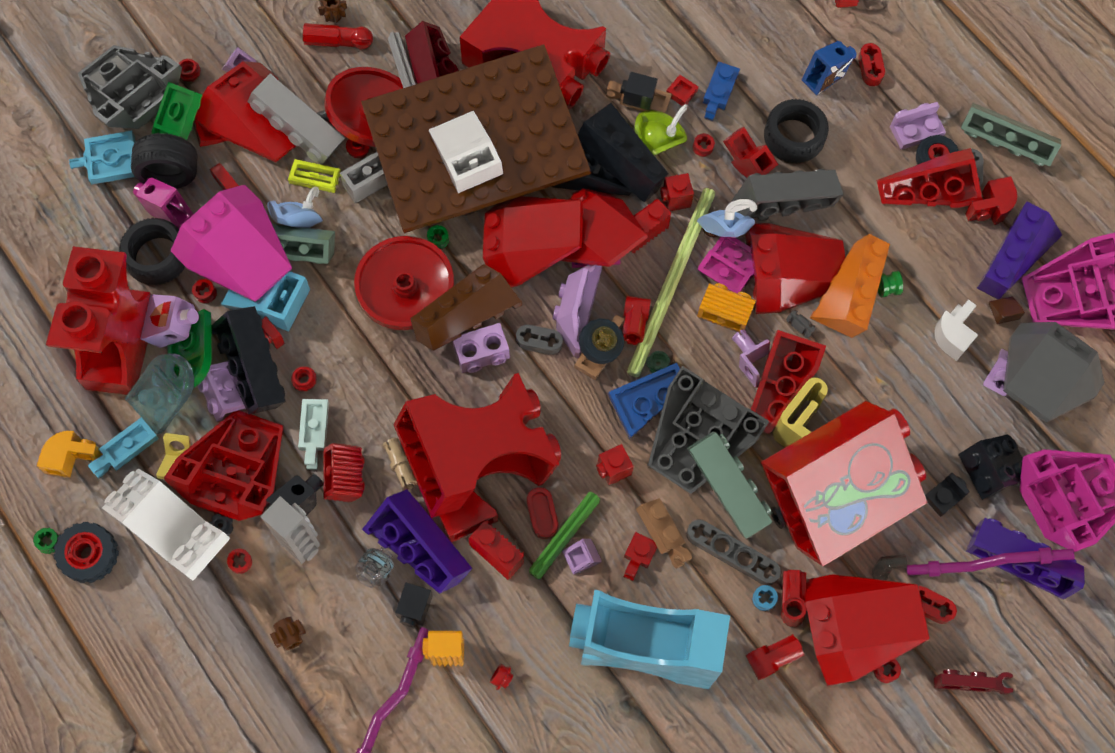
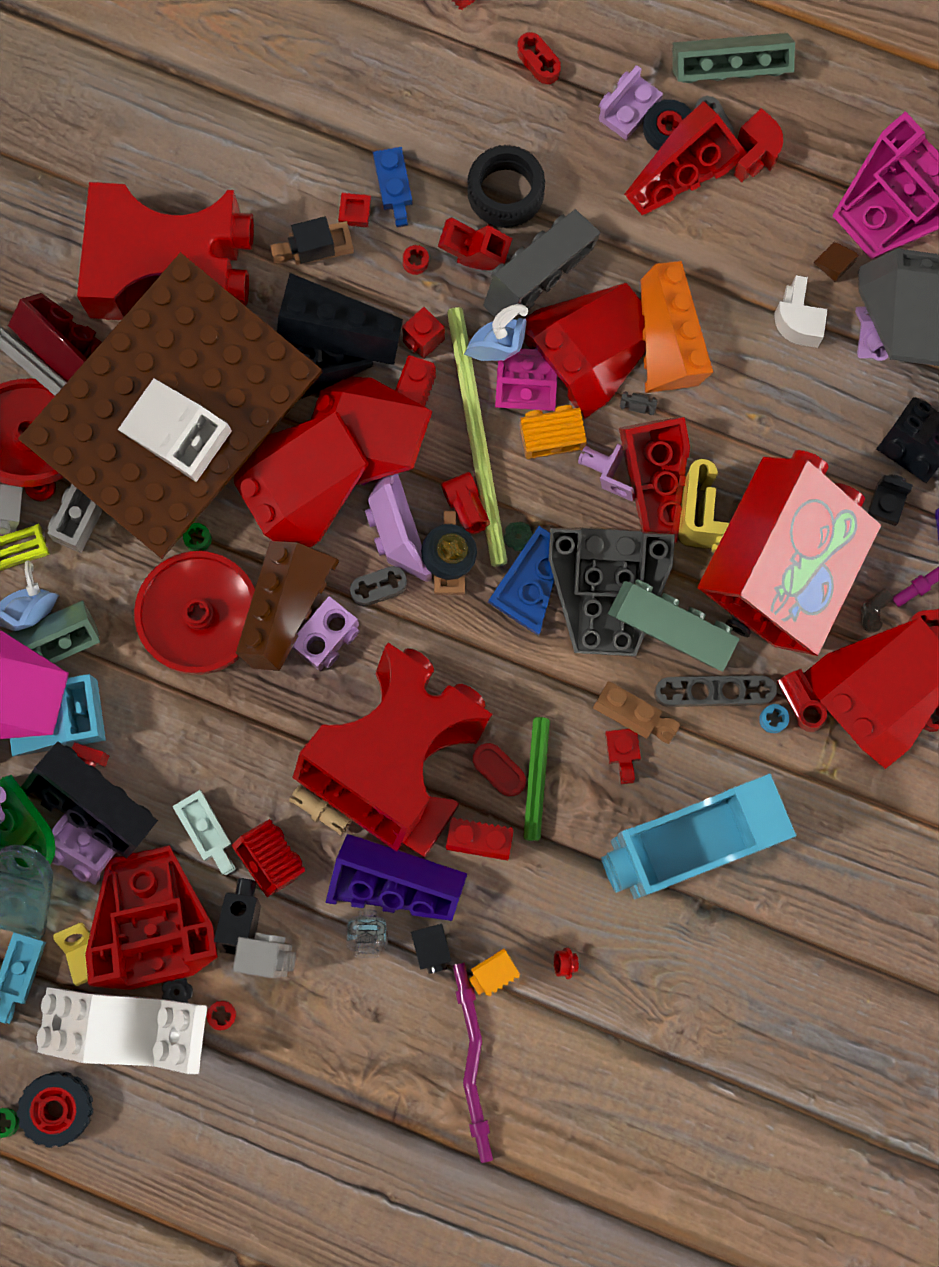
camera: 30 degrees left, 10 degrees up
(287, 633) = (323, 1058): reddish brown gear -> none
(303, 372) = (150, 775): red plate -> none
(581, 556) = (567, 789): lavender slope -> none
(614, 465) = (542, 675): red brick -> none
(660, 130) = (360, 272): lime hat -> none
(768, 659) = (815, 779): red piece -> none
(828, 66) = (500, 79): blue torso -> none
(890, 284) = (706, 303): green wheel -> none
(1023, 245) = (814, 172): dark purple wedge -> none

